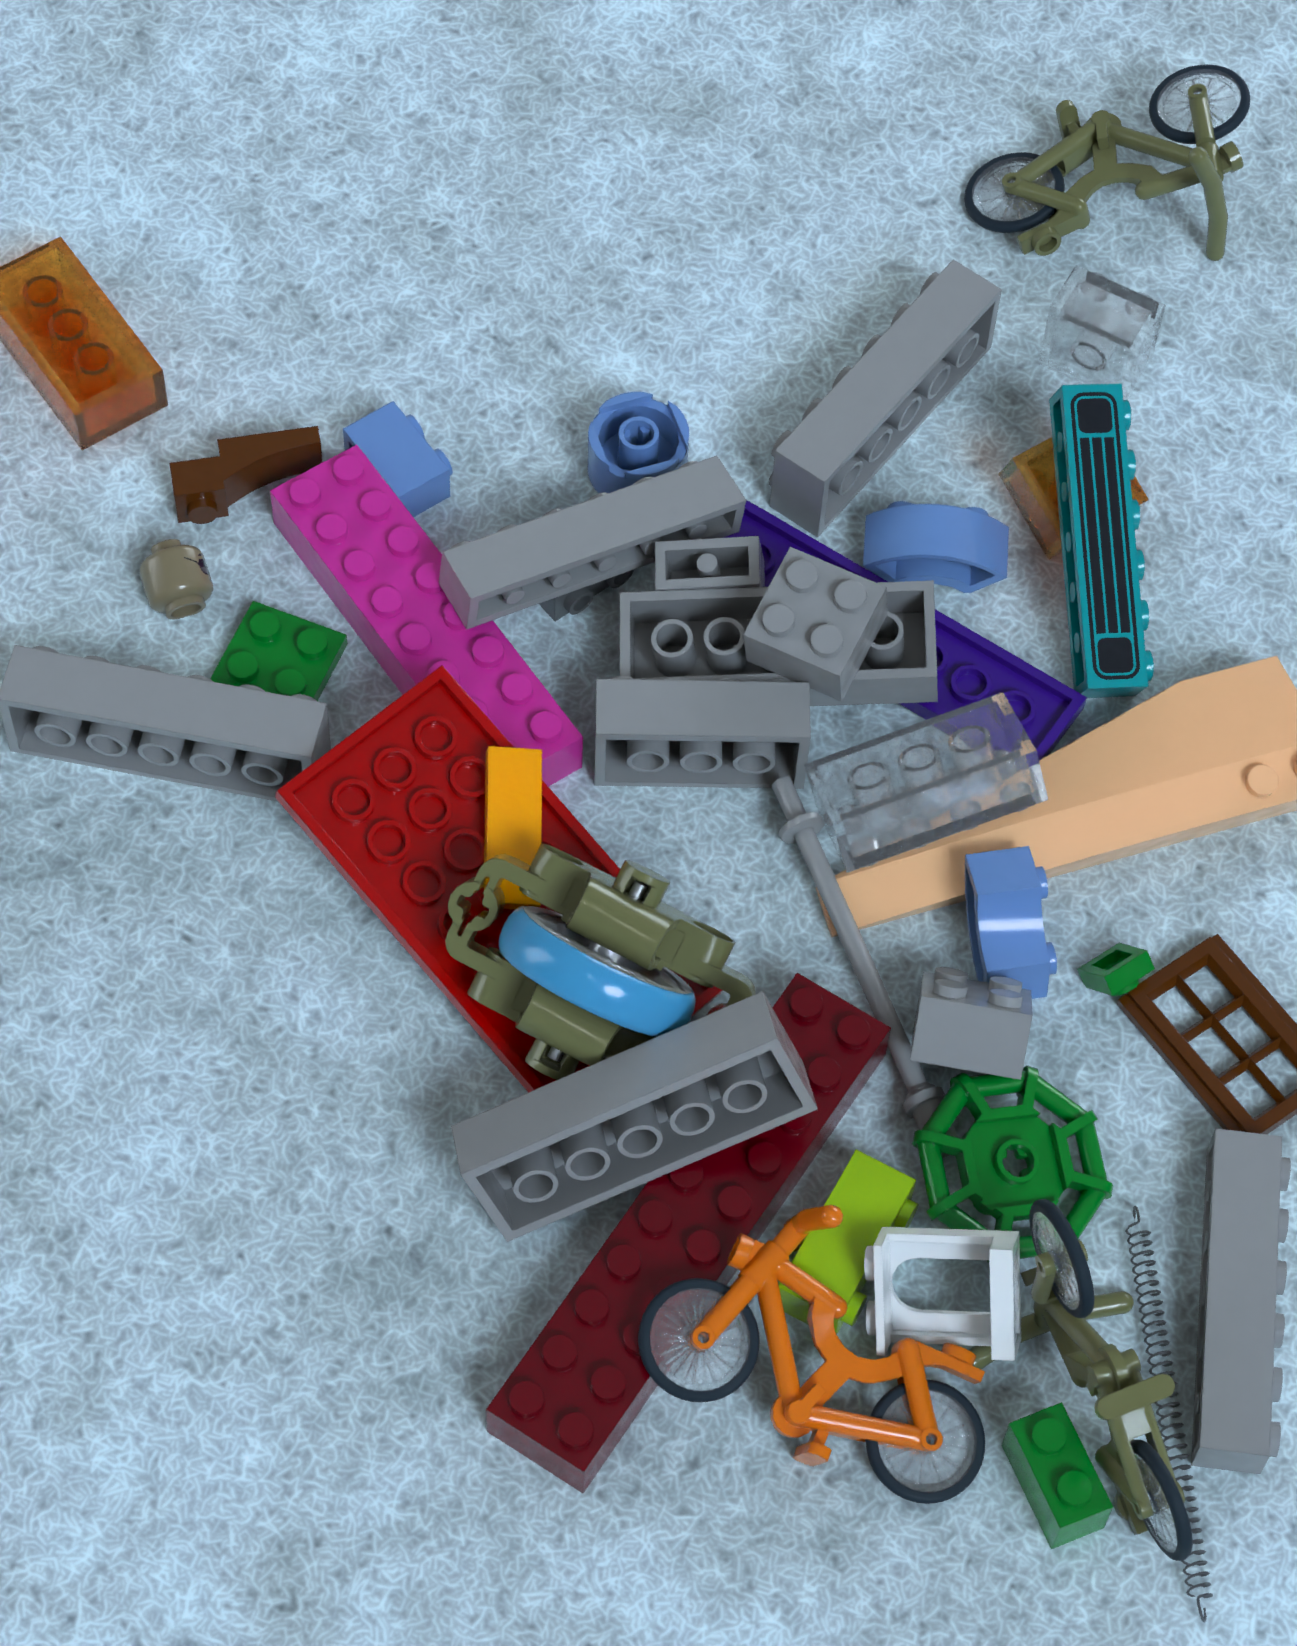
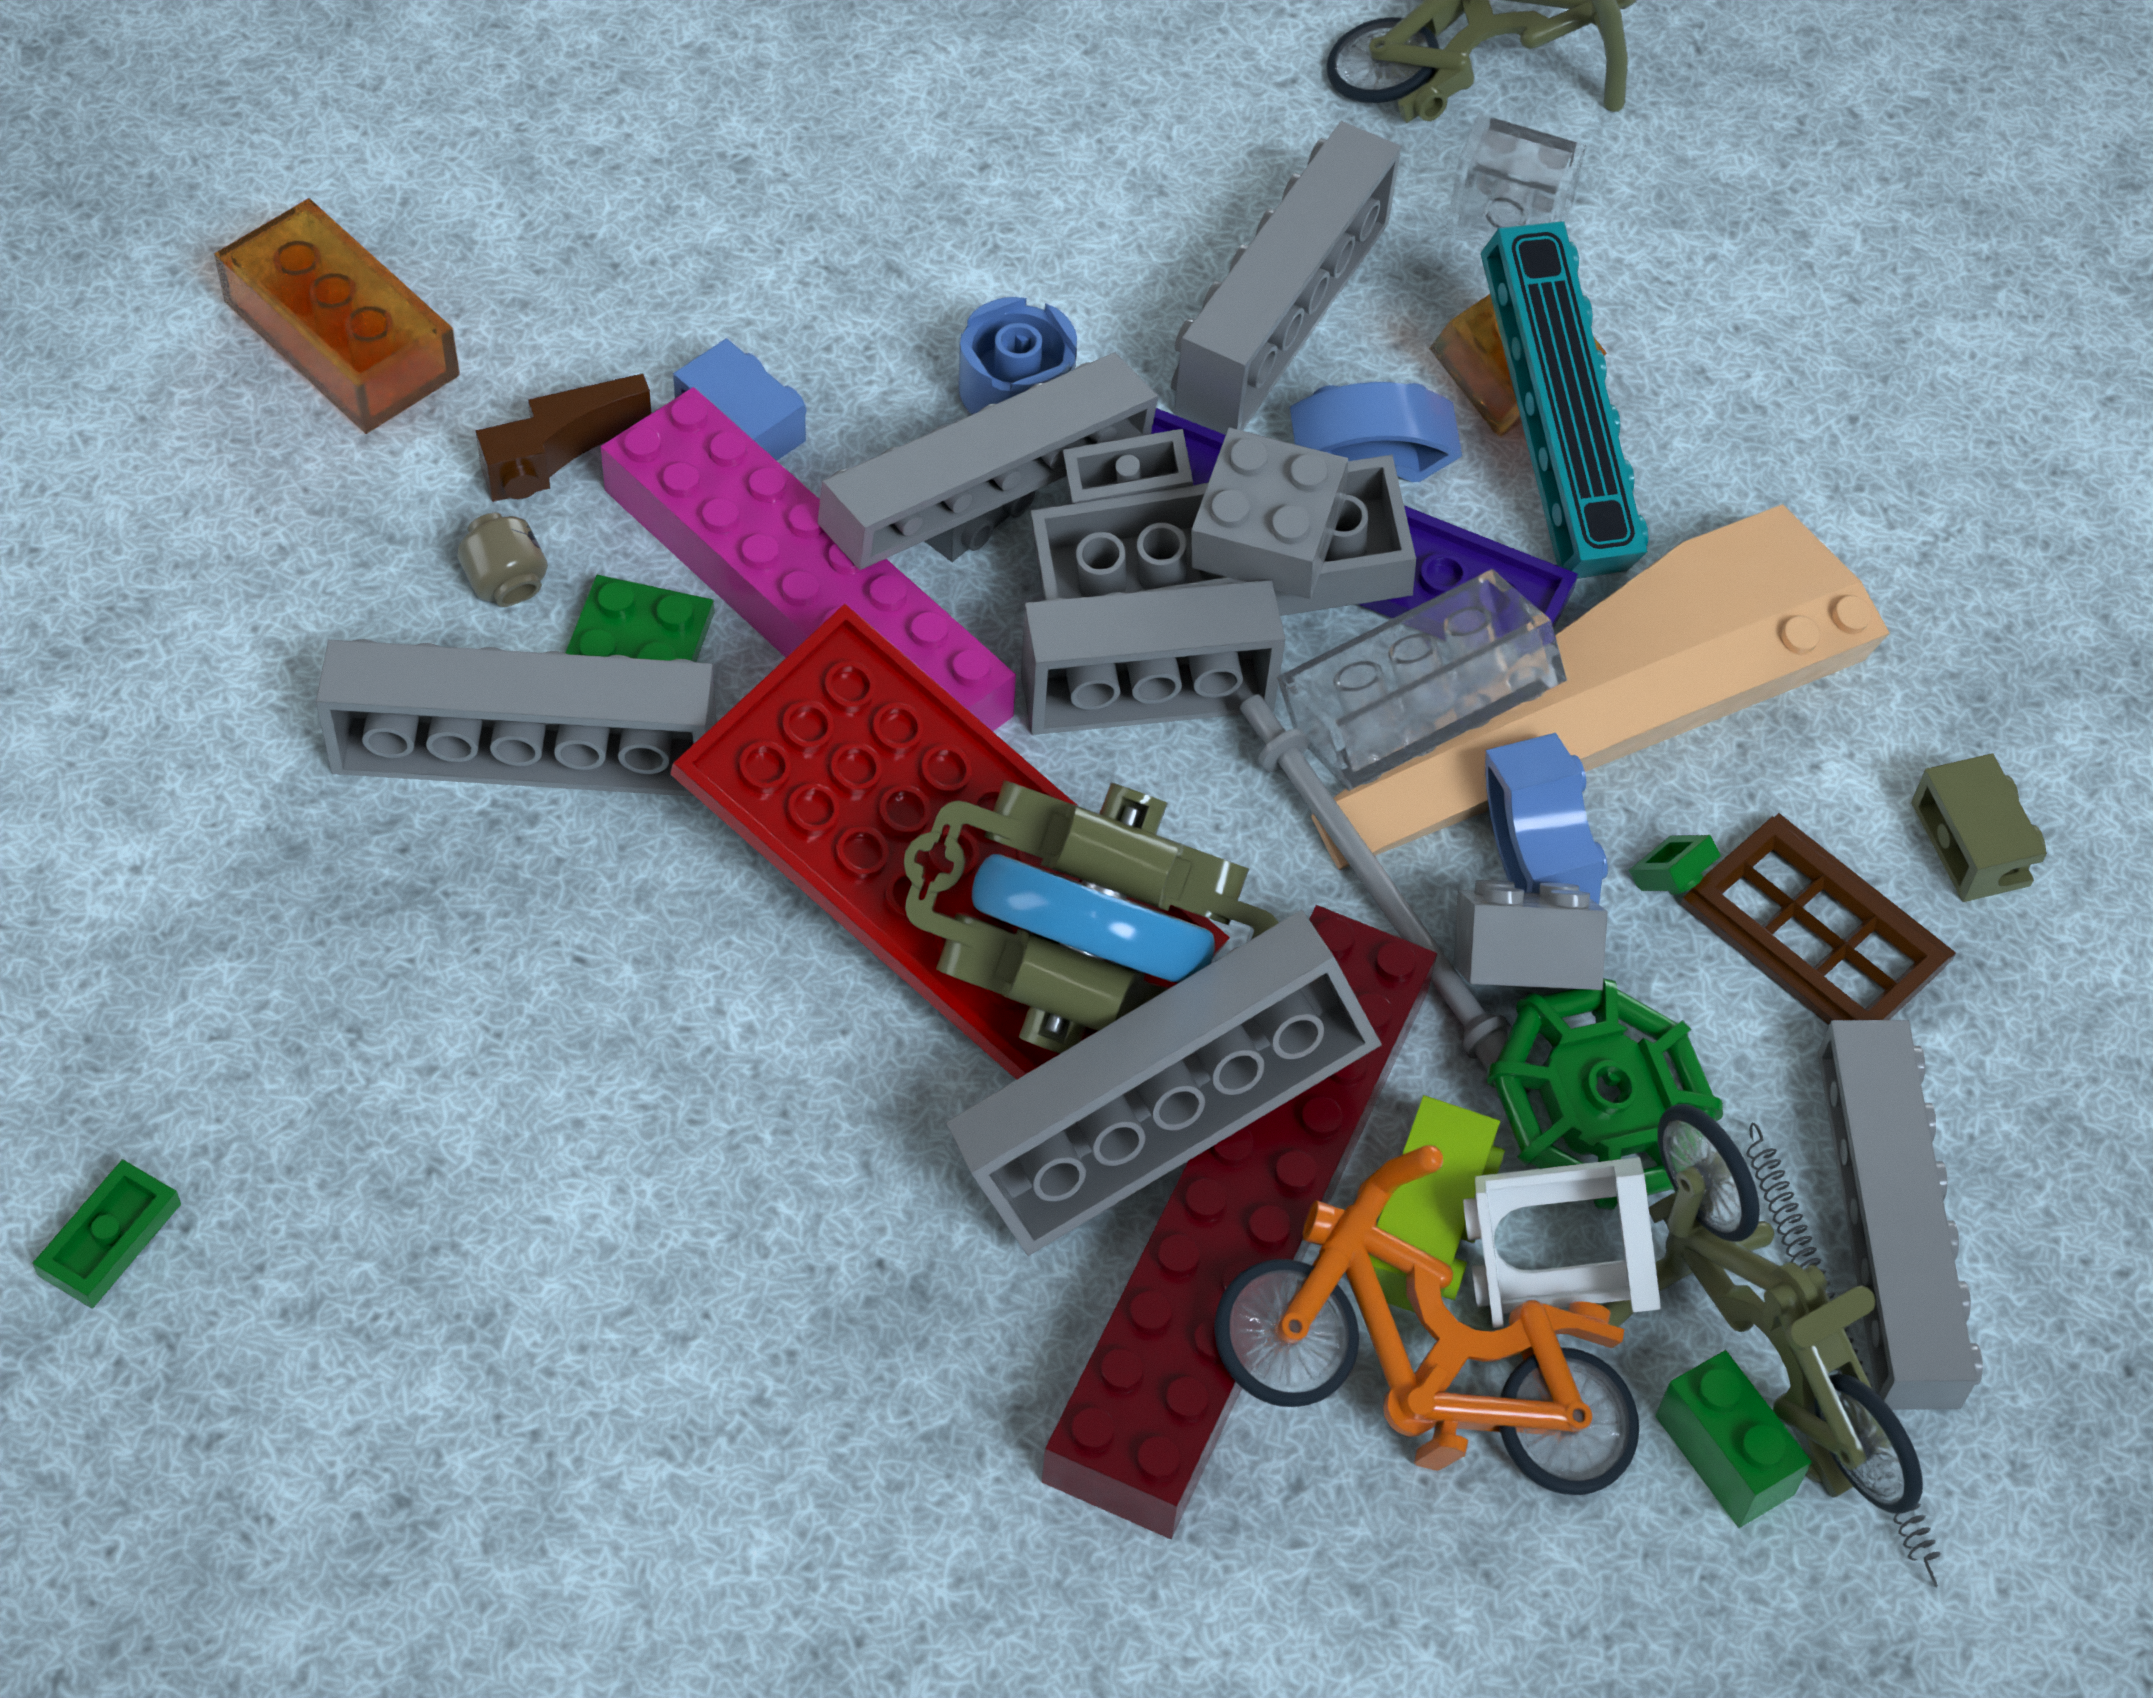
camera: 10 degrees left, 5 degrees down
(513, 811) = (955, 764): light orange tile -> none

